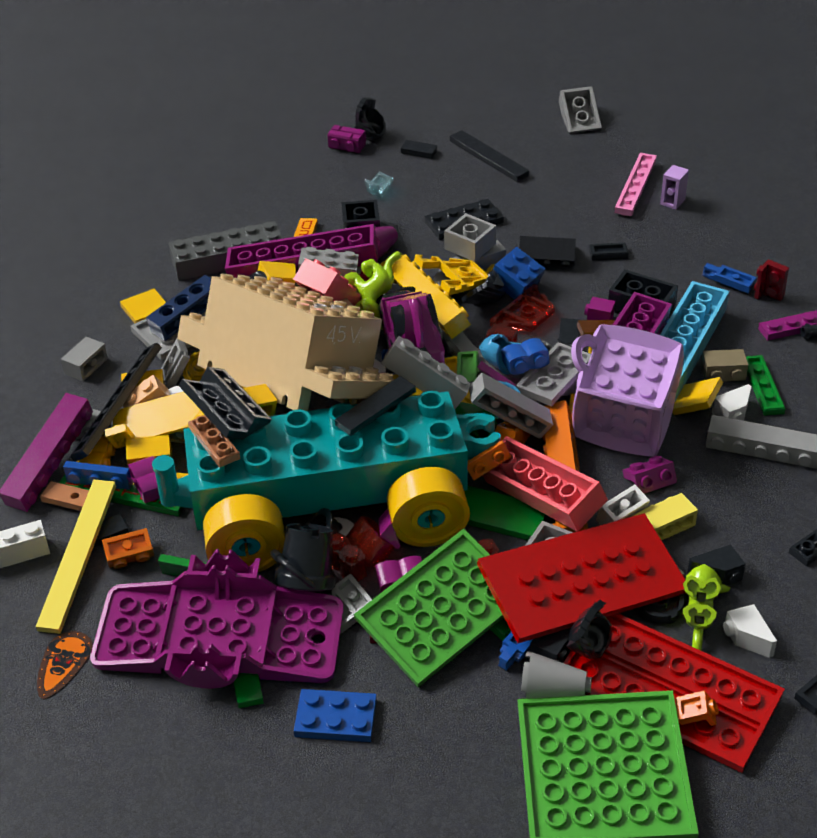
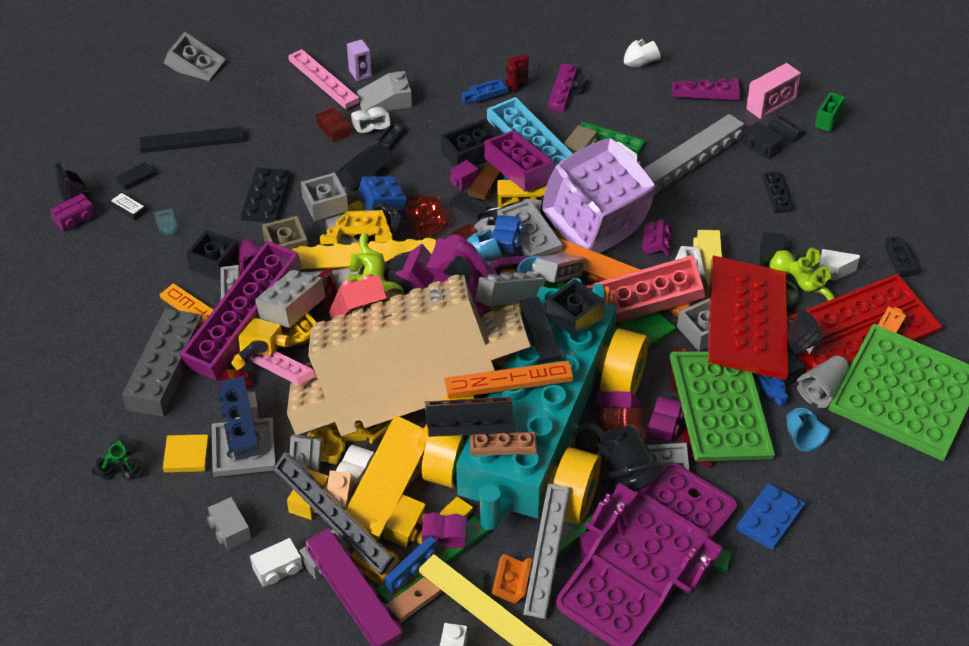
camera: 60 degrees left, 5 degrees up
(51, 394) = (276, 562): none -> white brick
(100, 273) = (117, 454): none -> black plant
(154, 547) = (546, 551): none -> light grey tile
(297, 412) = (508, 379): none -> orange tile
(382, 161) = (128, 205): none -> tile
(412, 411) = (575, 308): none -> black brick
(413, 241) = (285, 233): none -> dark tan brick
(467, 694) = (806, 429): none -> dark azure helmet
(583, 213) = (333, 124): none -> clear red brick
(610, 228) = (372, 119): none -> white brick
(658, 225) = (389, 92): none -> light grey slope

